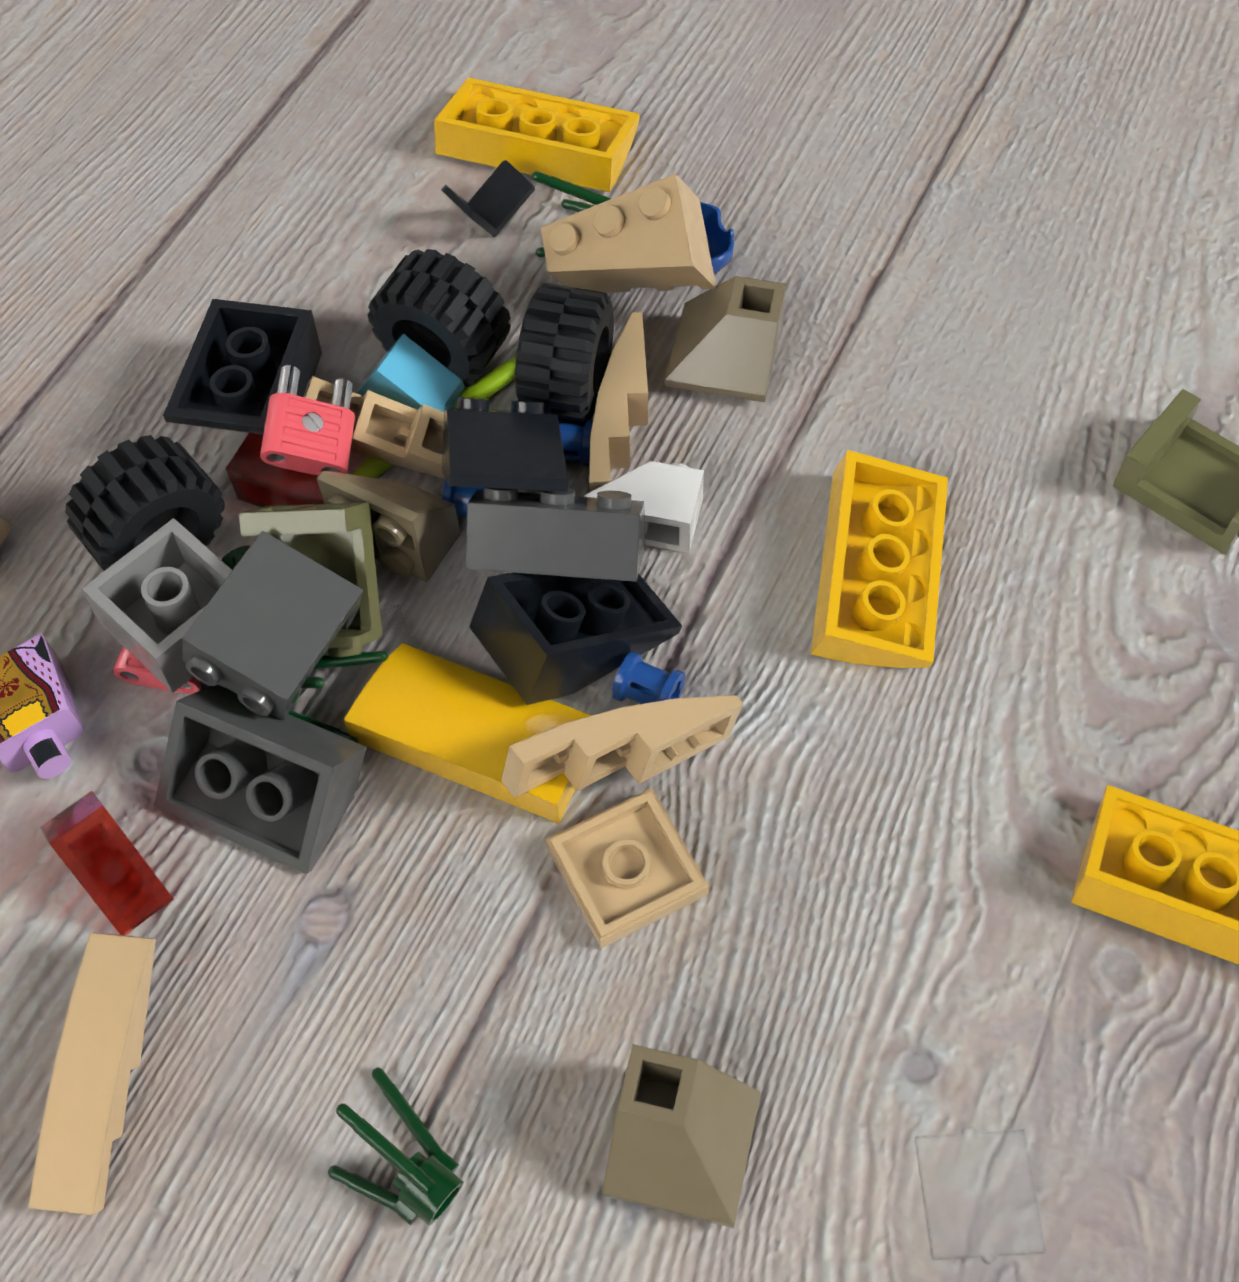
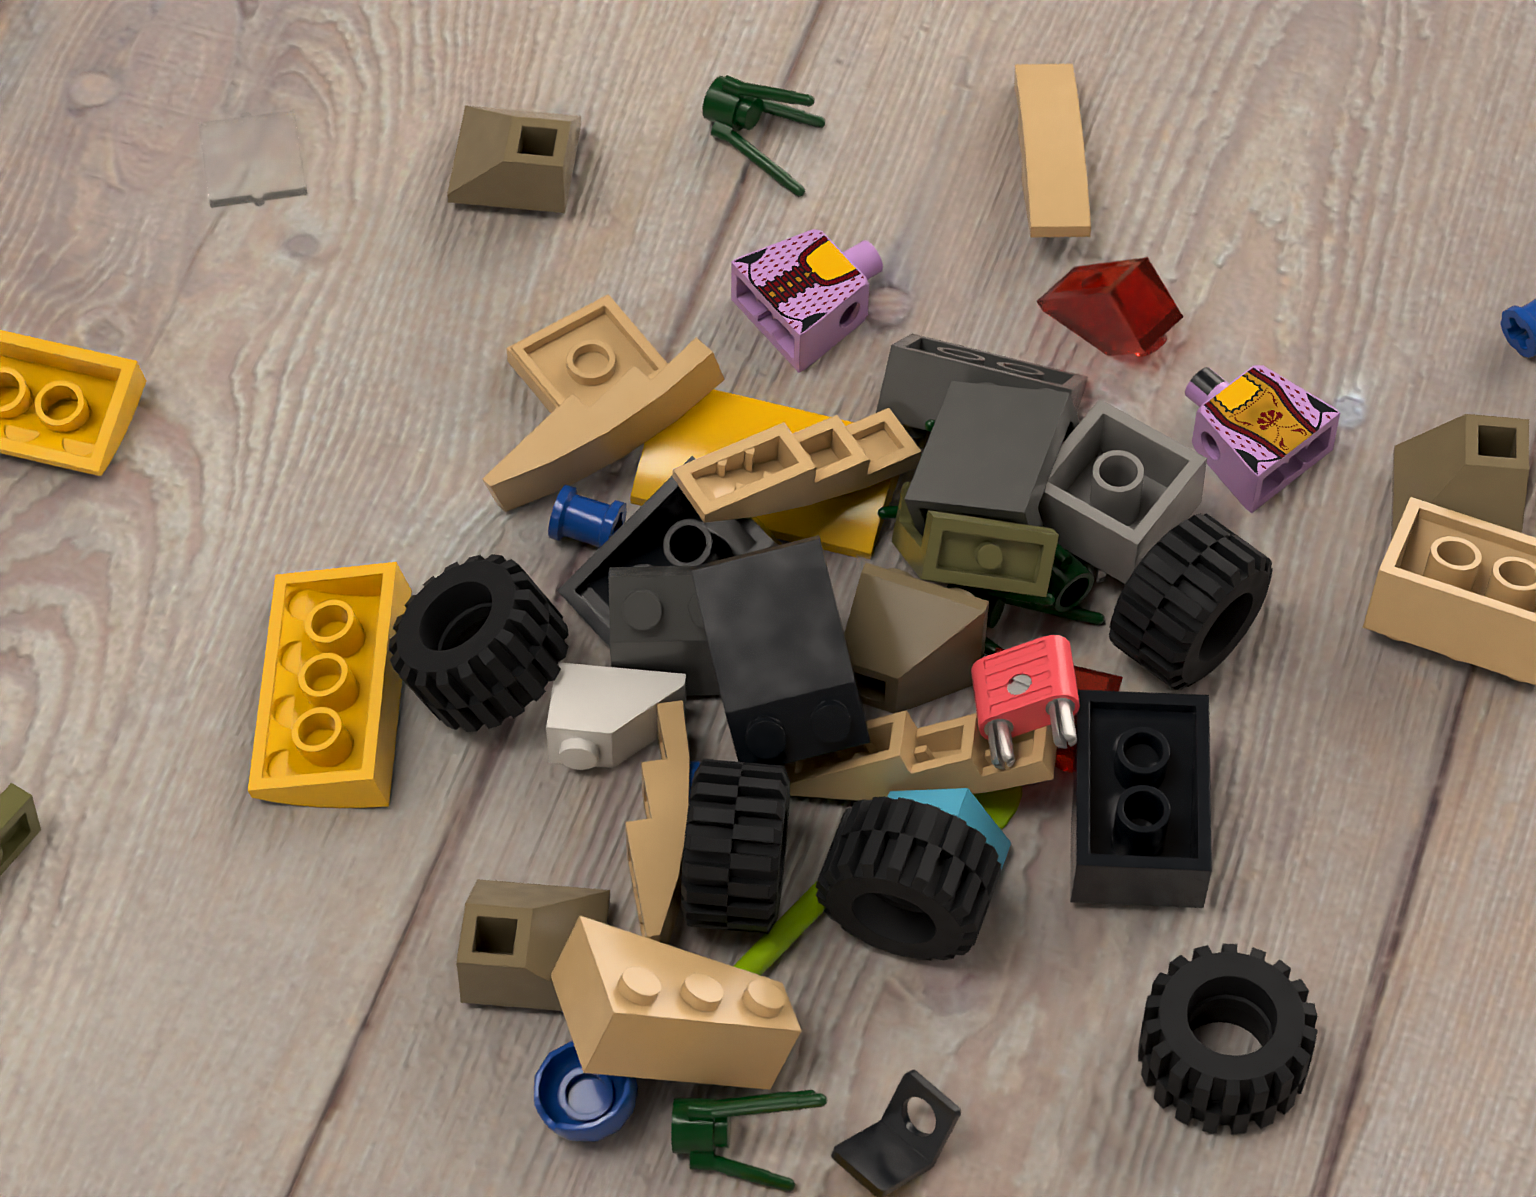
camera: 170 degrees right, 5 degrees down
(243, 230) = (1232, 991): none -> black tyre
(398, 910) = (805, 293): none -> lavender torso
(446, 651) = (798, 469): none -> tan slope
(784, 519) = (479, 643): none -> black tyre

